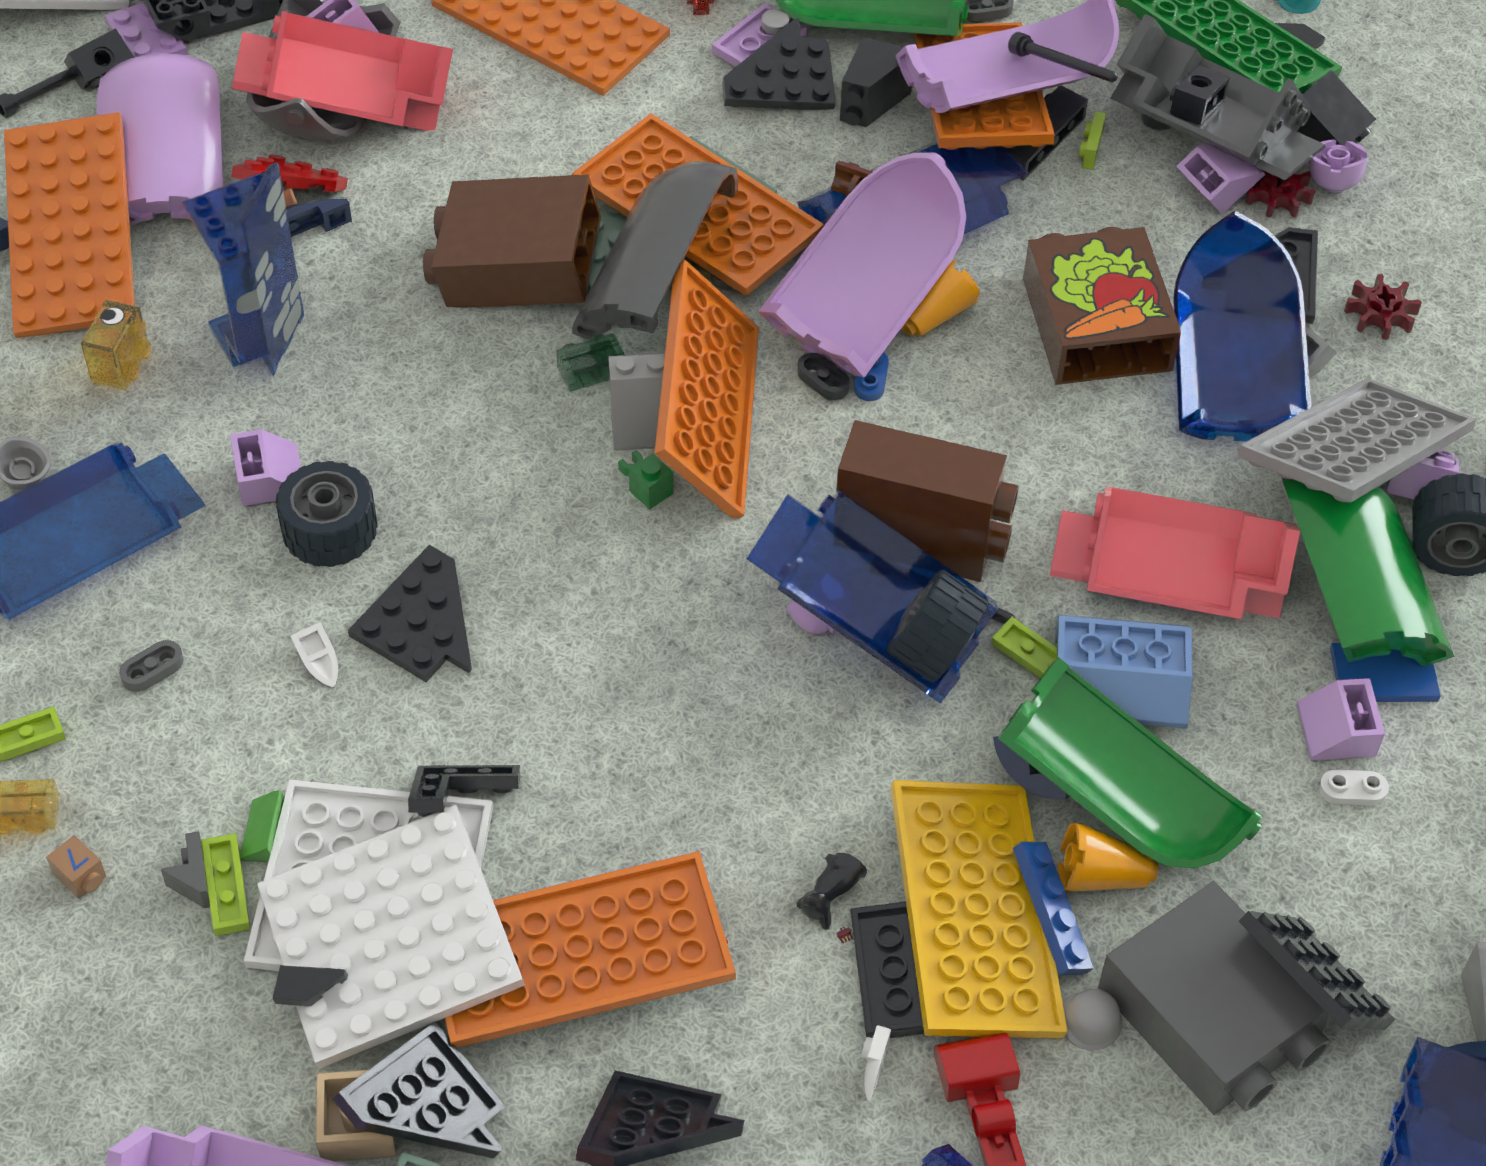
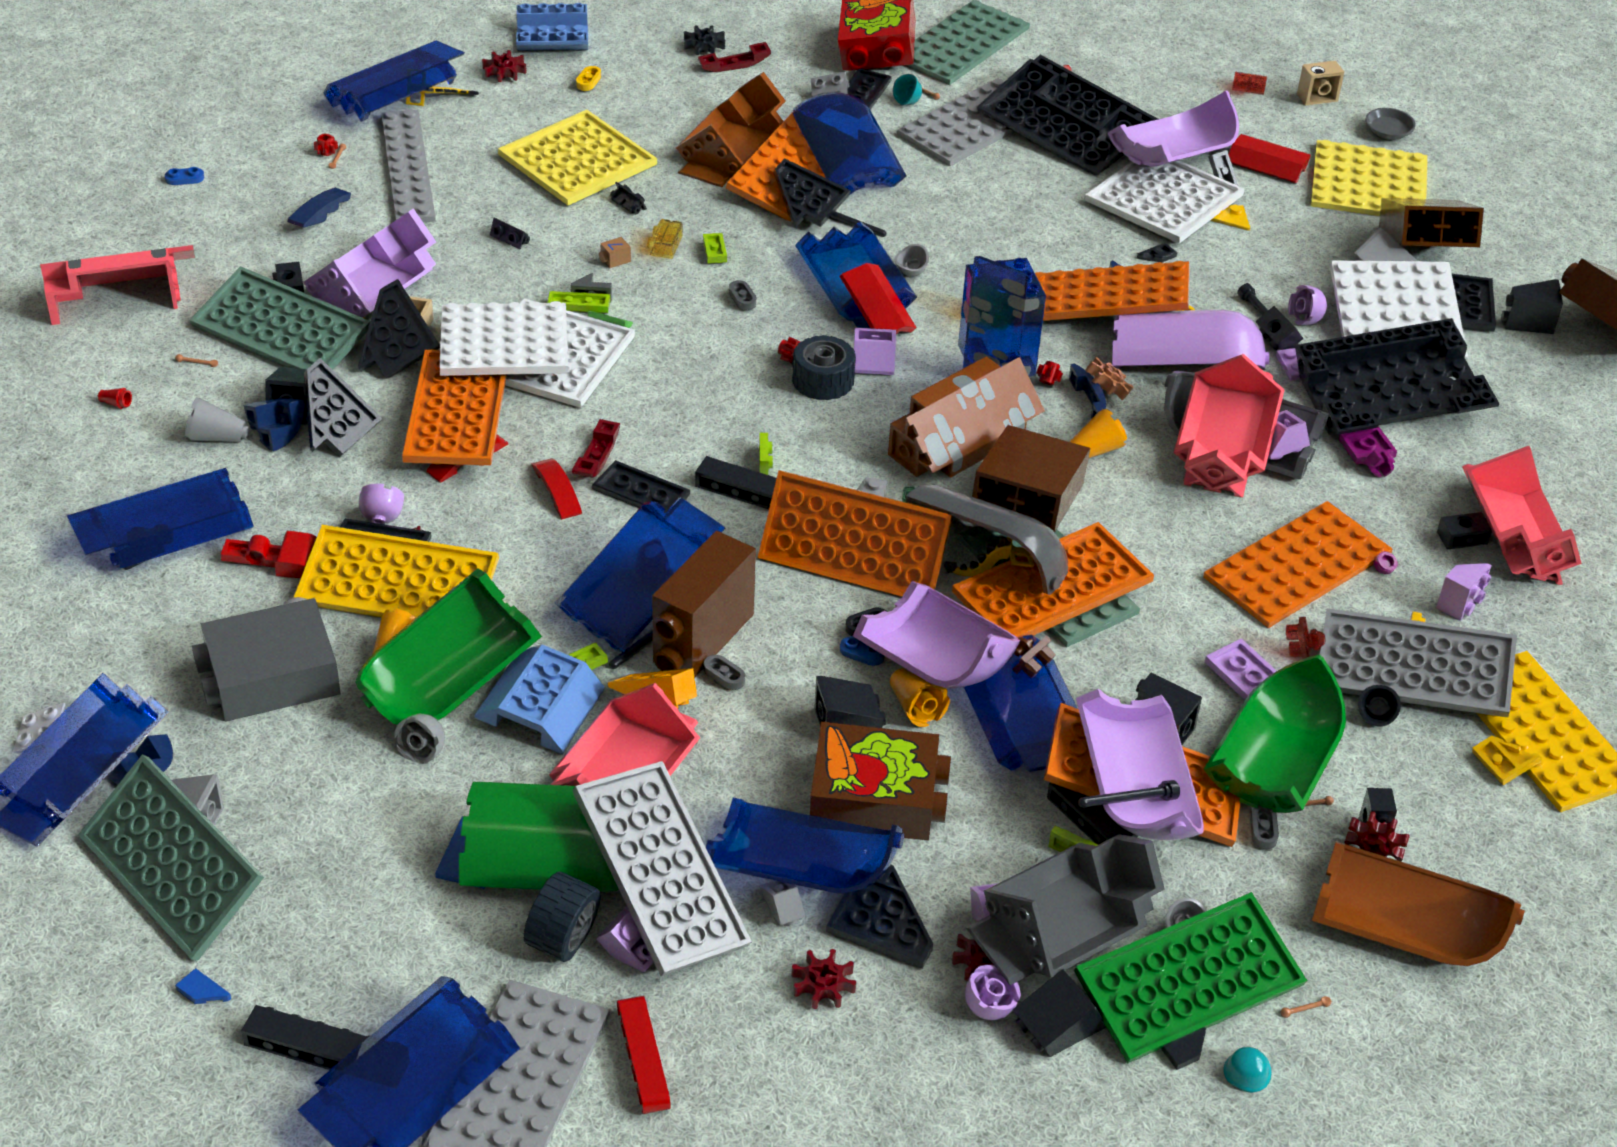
camera: 105 degrees right, 10 degrees down
(37, 31) = (1307, 301): none -> lavender cylinder
(51, 1046) = (508, 233): none -> black hinge
(155, 475) = (877, 299): none -> red slope
(285, 569) = (787, 348): none -> red gear
(294, 175) = (1137, 392): red plate -> none
(305, 984) = (485, 300): black tile -> none
(317, 654) = (726, 355): white plate -> none
(389, 203) = (1101, 434): none -> light orange cone
(418, 618) = (734, 401): black wing -> none
(433, 784) = (606, 382): black plate -> none
(458, 344) = (963, 417): none -> panel
(537, 548) = (765, 449): none -> lime plate
(604, 754) = (599, 449): none -> dark red slope
(609, 560) = (735, 482): none -> black brick
(654, 681) = (638, 487): none -> black tile
(684, 781) = (559, 487): none -> red slope
(774, 21) = (1255, 675): light grey tile -> none
(783, 74) = (1201, 668): black wing -> none
(831, 977) = (380, 504): none -> lavender cylinder
(838, 877) = (449, 525): black animal -> none
(875, 1052) = (324, 514): white plate -> none
(937, 626) = (595, 586): black wheel -> none
(995, 358) = (847, 703): none -> black slope
(1049, 546) = (676, 684): none -> light orange slope
(1053, 908) = (370, 612): blue plate -> none
(1199, 94) = (1083, 898): black brick -> none
(1250, 771) = (418, 732): none -> light grey cylinder
(1318, 970) = (249, 698): black plate -> none
(1341, 721) = (435, 805): lavender slope -> none
(1354, 787) = (392, 796): white plate -> none

